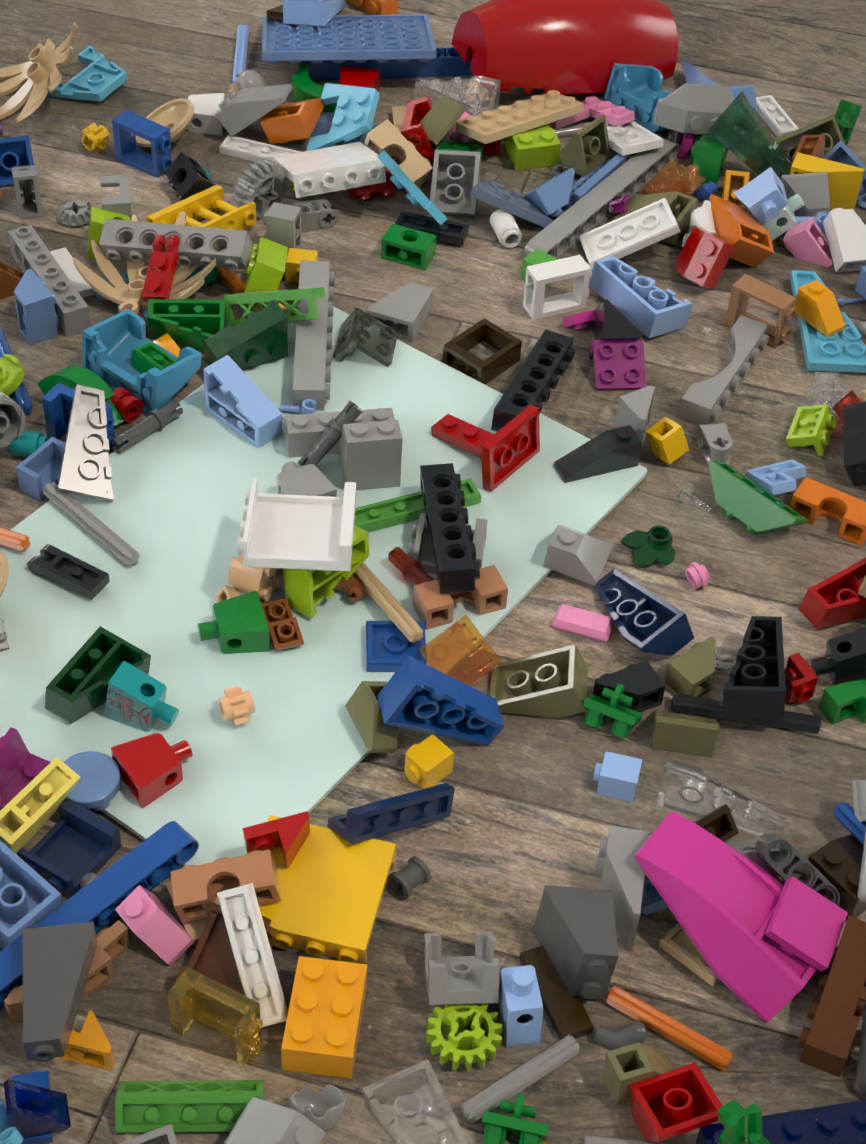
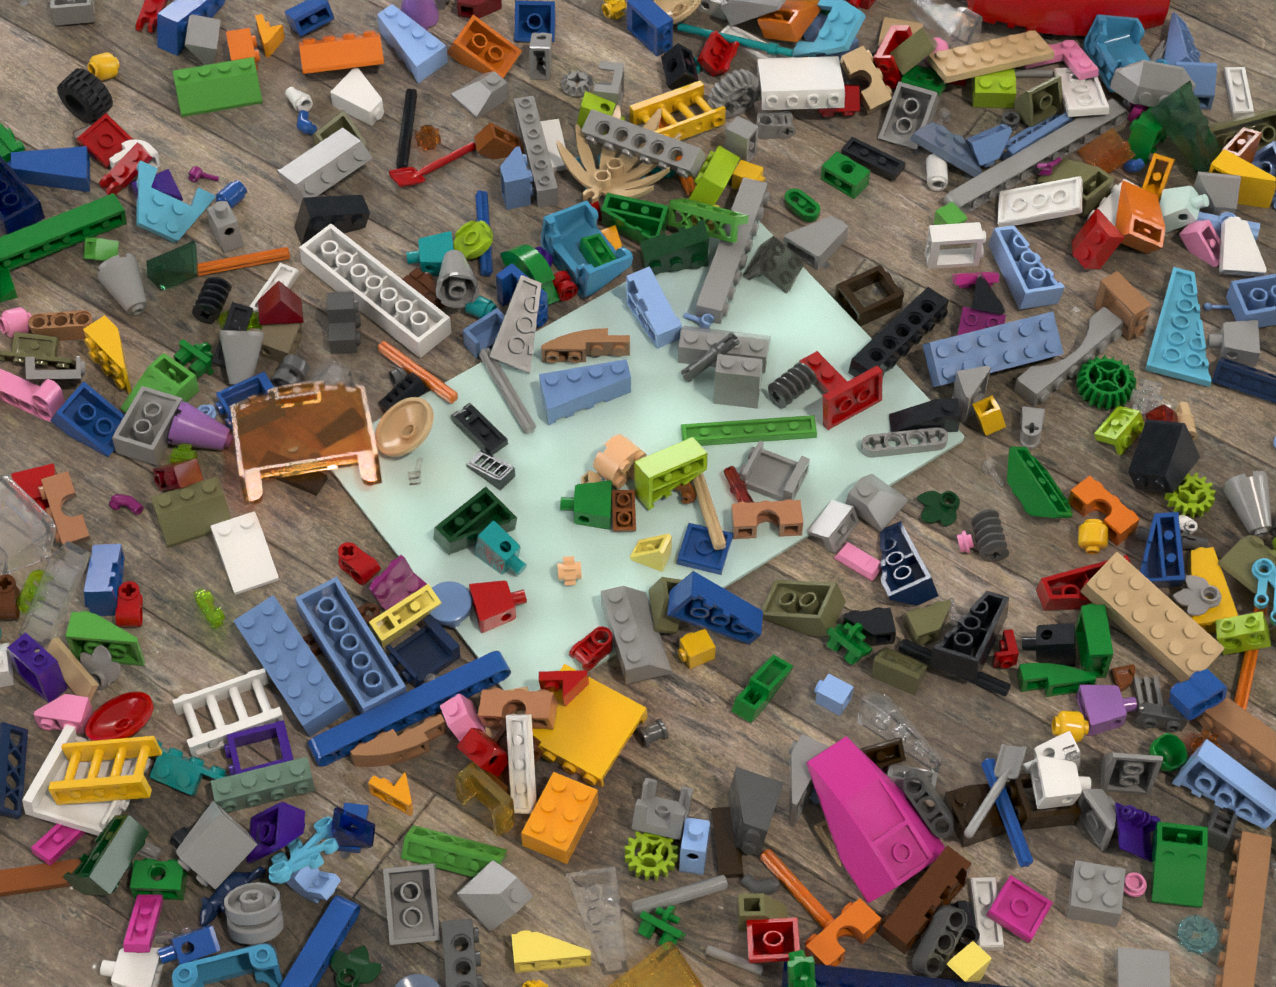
camera: 20 degrees right, 10 degrees up
(53, 983) = (383, 749): dark grey slope -> none
(112, 617) = (500, 481): none -> slope
(154, 421) = (583, 307): dark grey pin -> none
(161, 268) = (624, 166): red hinge -> none
(165, 457) = (576, 345): none -> medium nougat slope
(184, 500) = (582, 387): none -> medium blue wedge
(195, 951) = (481, 749): none -> red torso
(226, 163) = (717, 54): none -> red bracket
(283, 147) = (771, 48): none -> teal bar
(294, 793) = (590, 651): none -> red piece
(297, 530) = (653, 440): white panel -> none
(304, 481) = (677, 399): light grey torso -> none
(320, 1107) = (536, 878): light grey hair -> none
(334, 661) = (653, 551): none -> light yellow slope
(340, 758) = (633, 634): none -> light grey slope
(372, 282) = (803, 206): none -> green plate
(394, 814) = (654, 685): dark blue fence -> none
(414, 194) = (867, 122): medium azure wing -> none
(434, 447) = (791, 384): none -> dark grey piece
(448, 529) = (773, 460): black brick -> none
(461, 652) = (749, 569): clear orange hinge -> none
(526, 791) = (761, 688): none -> green slope
(540, 586) = (834, 525): none -> light grey panel
(555, 496) = (903, 439): none -> light grey beam
(662, 363) = (994, 347): none -> medium blue brick
(704, 219) = (1108, 205): white cone -> none
(724, 562) = (989, 536): none -> dark grey piece
(763, 196) = (1173, 190): light blue torso -> none
(765, 1051) = (855, 921): none -> orange arch
(774, 387) = (1106, 376): none -> green gear
(777, 477) = (1065, 468): light blue plate -> none
(806, 923) = (915, 842): dark pink tile -> none
(819, 308) = (1175, 315): light orange slope -> none
(836, 539) = (1093, 536): none -> yellow head

